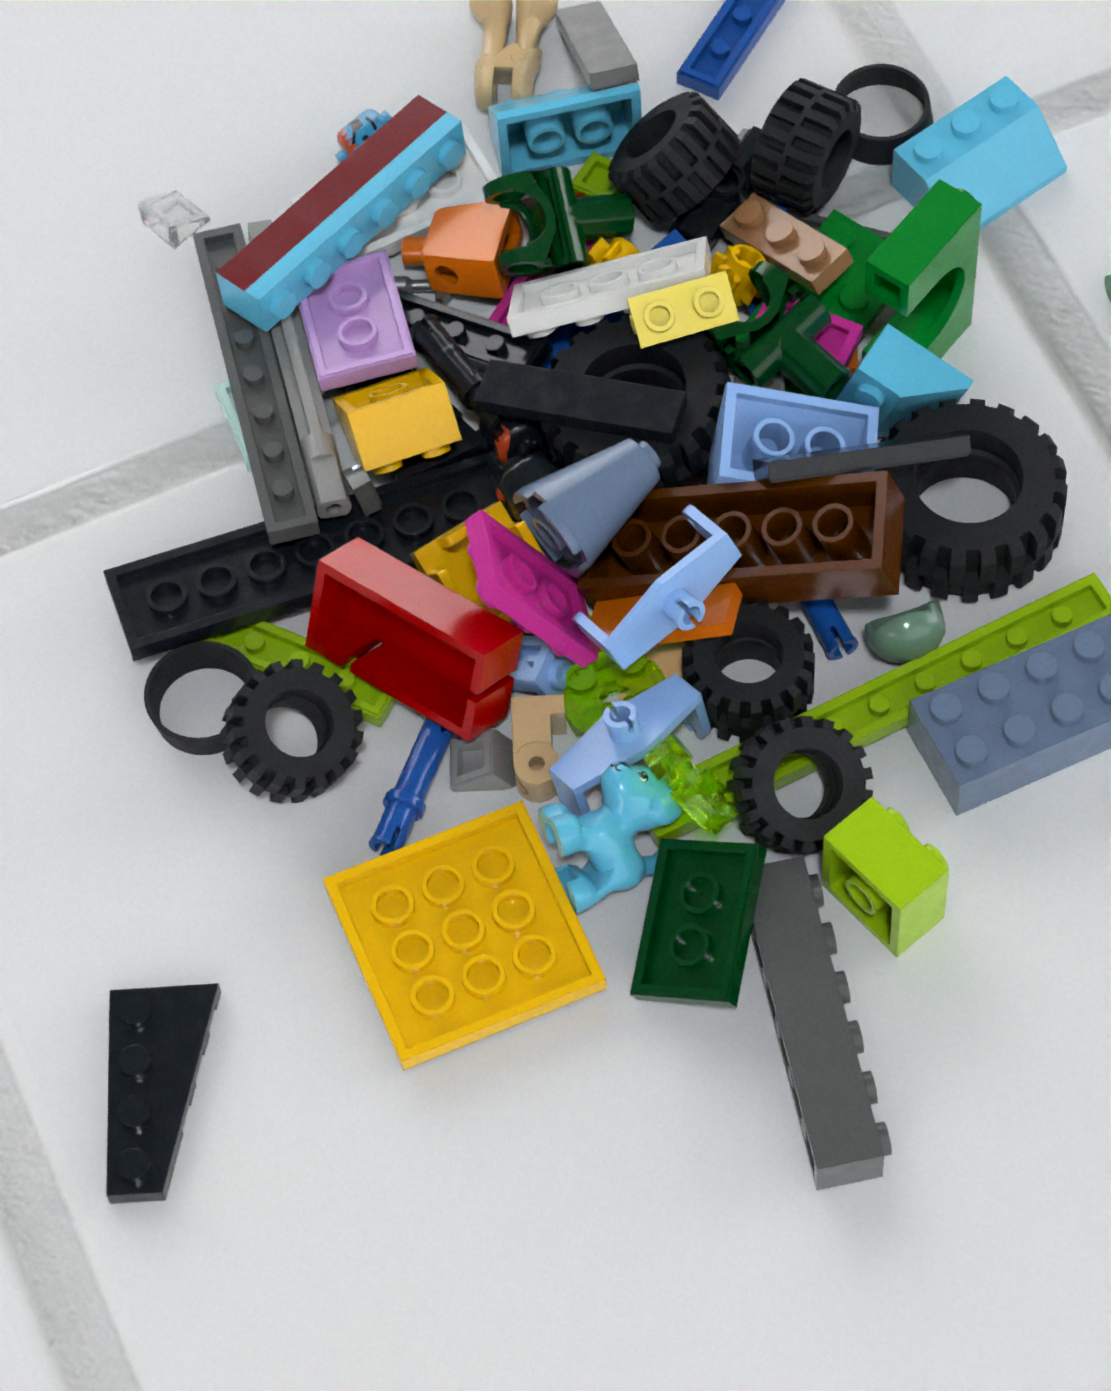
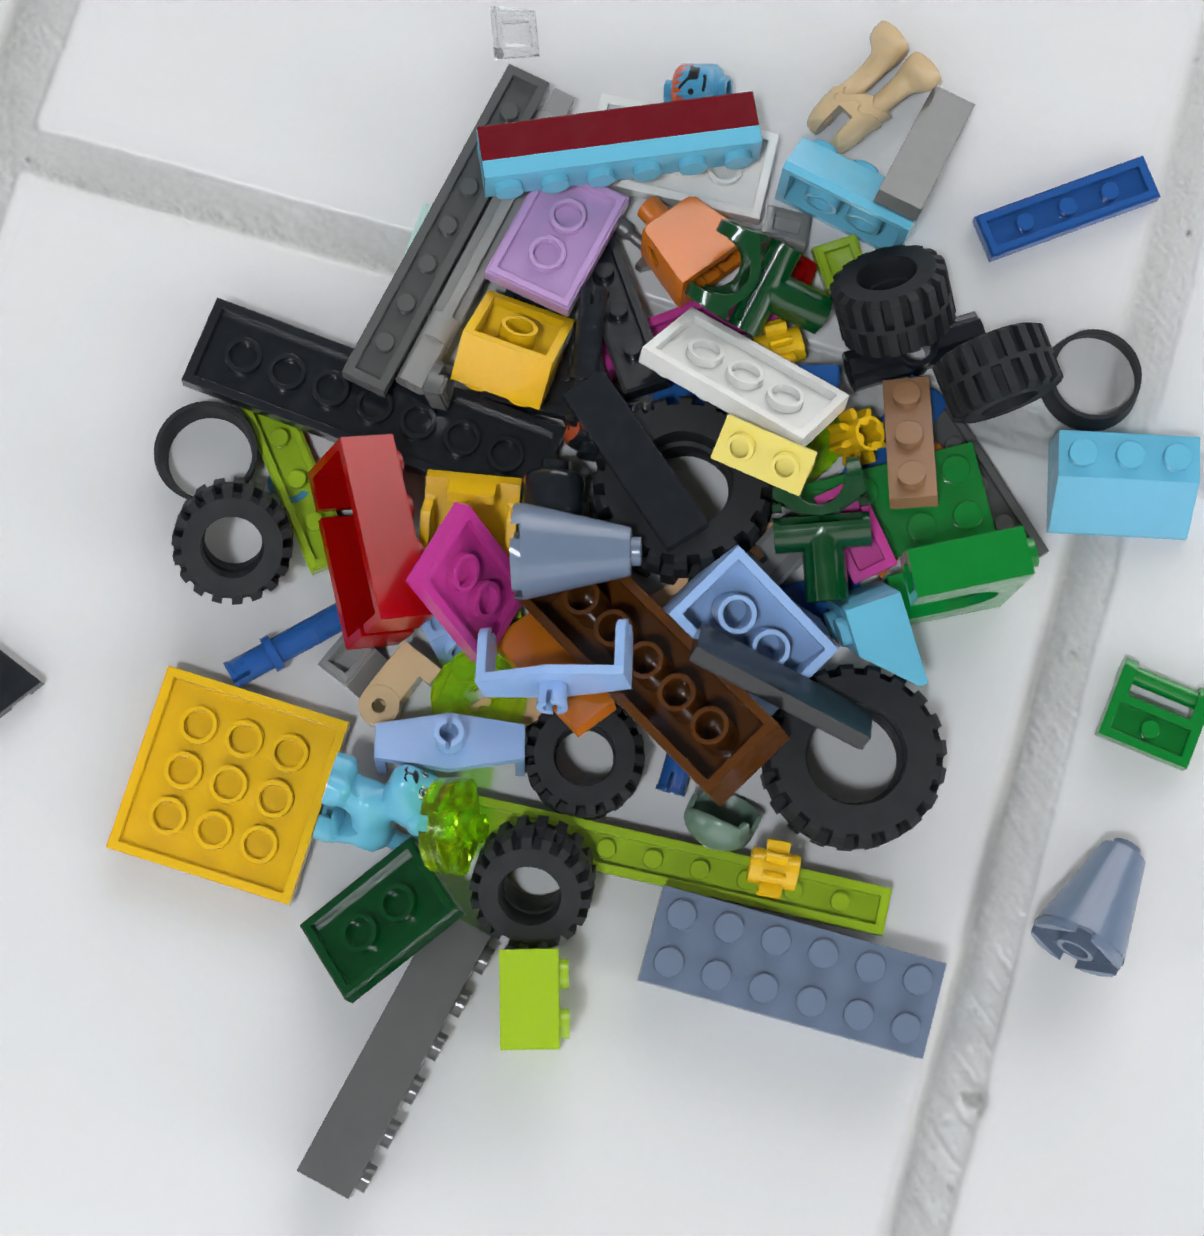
camera: 30 degrees right, 20 degrees up
(985, 619) = (773, 868): none -> yellow gear

